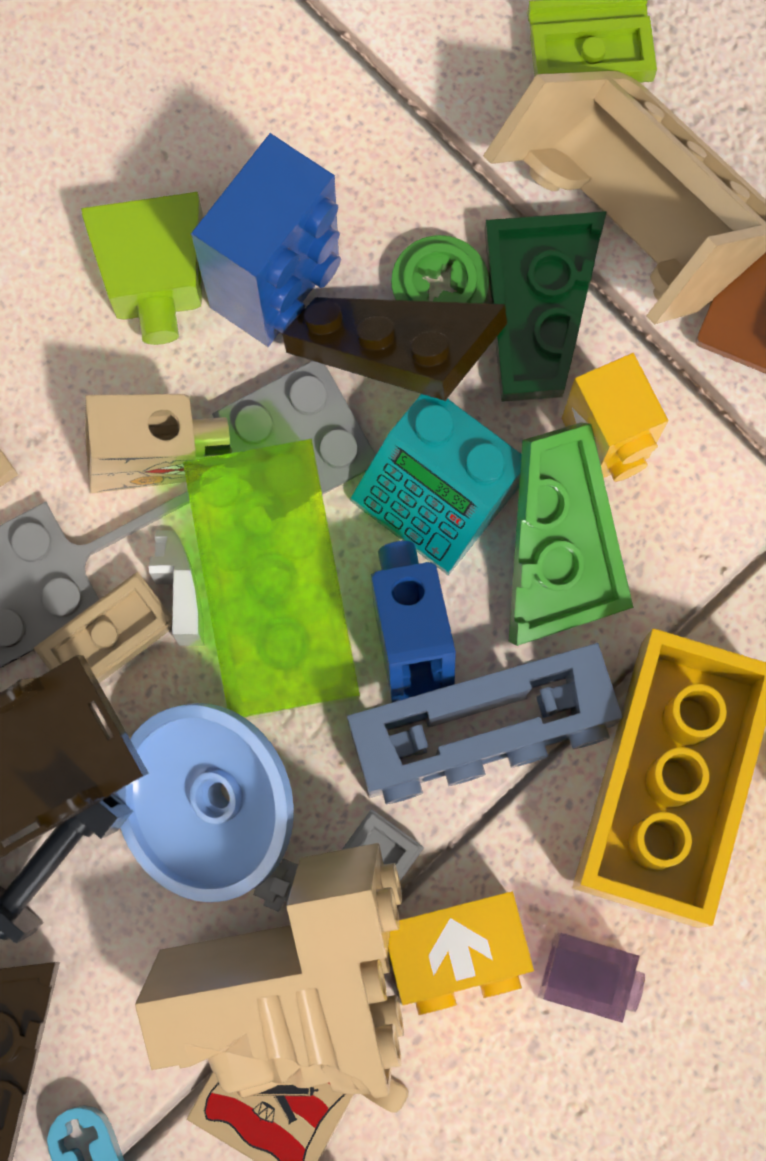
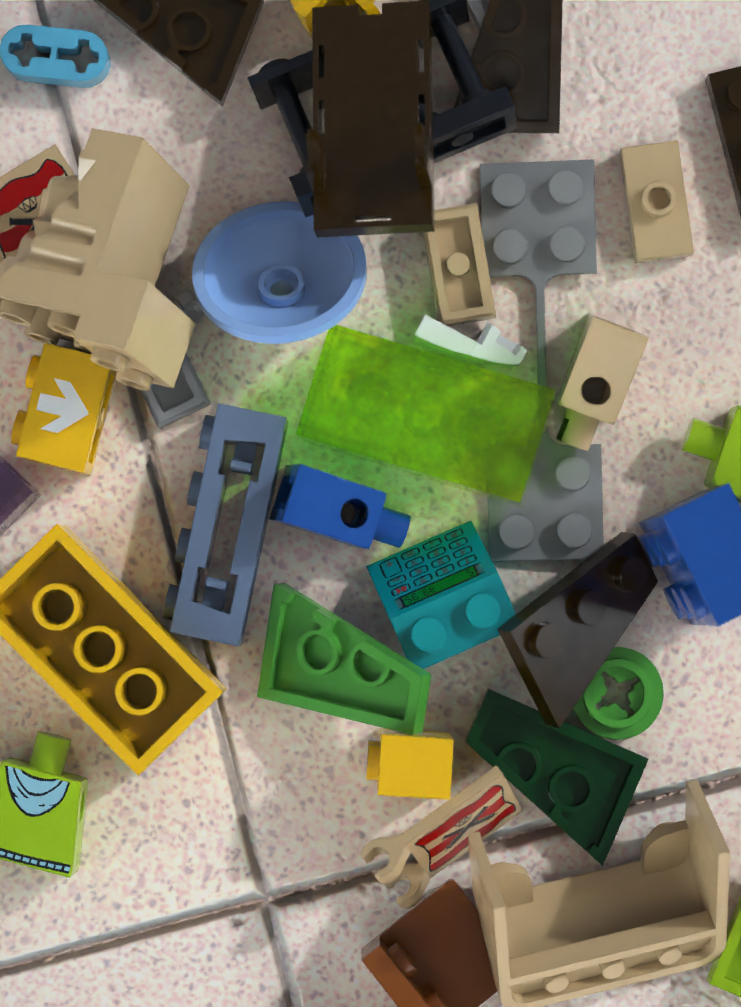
camera: 115 degrees right, 10 degrees up
(702, 374) = (444, 834): none -> tan flag

